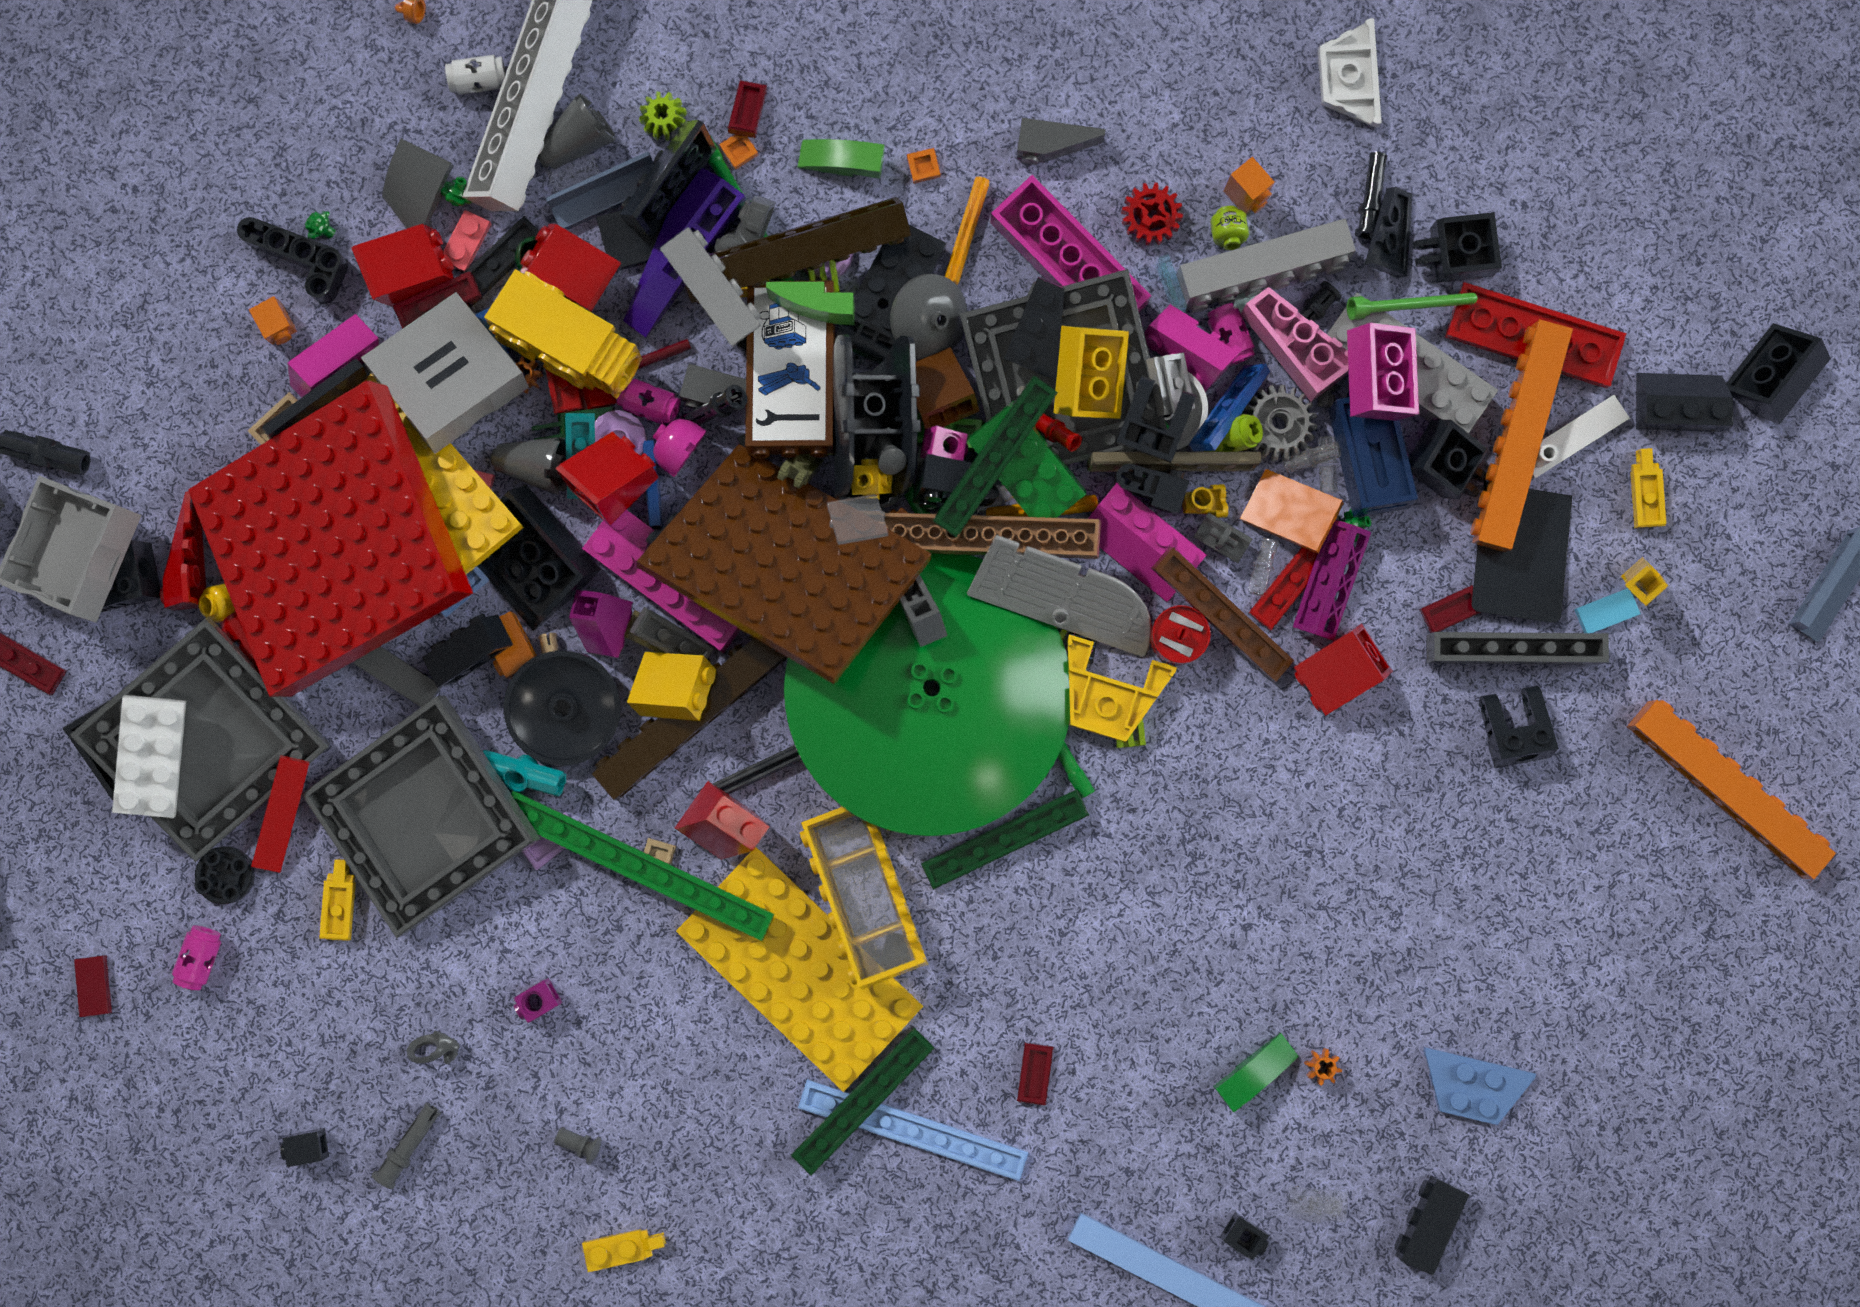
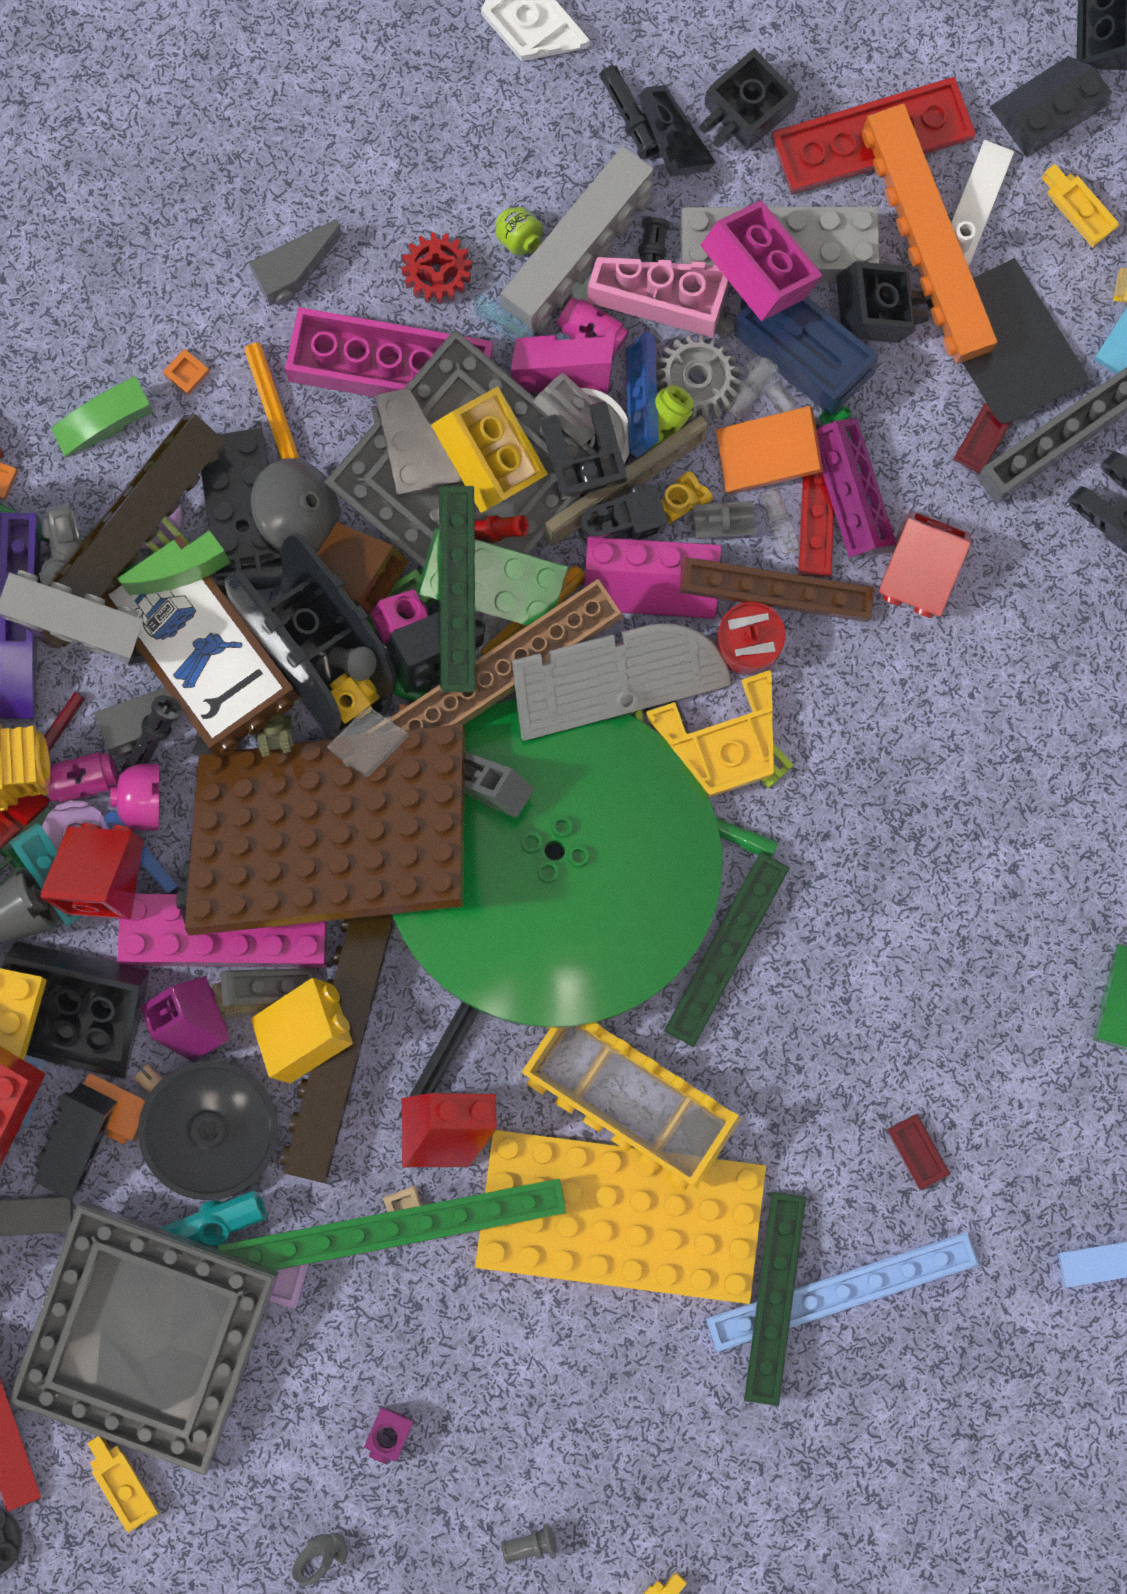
camera: 40 degrees left, 5 degrees down
(1249, 187) = (511, 179): orange brick -> none
(1360, 307) = (695, 218): bright green piece -> none

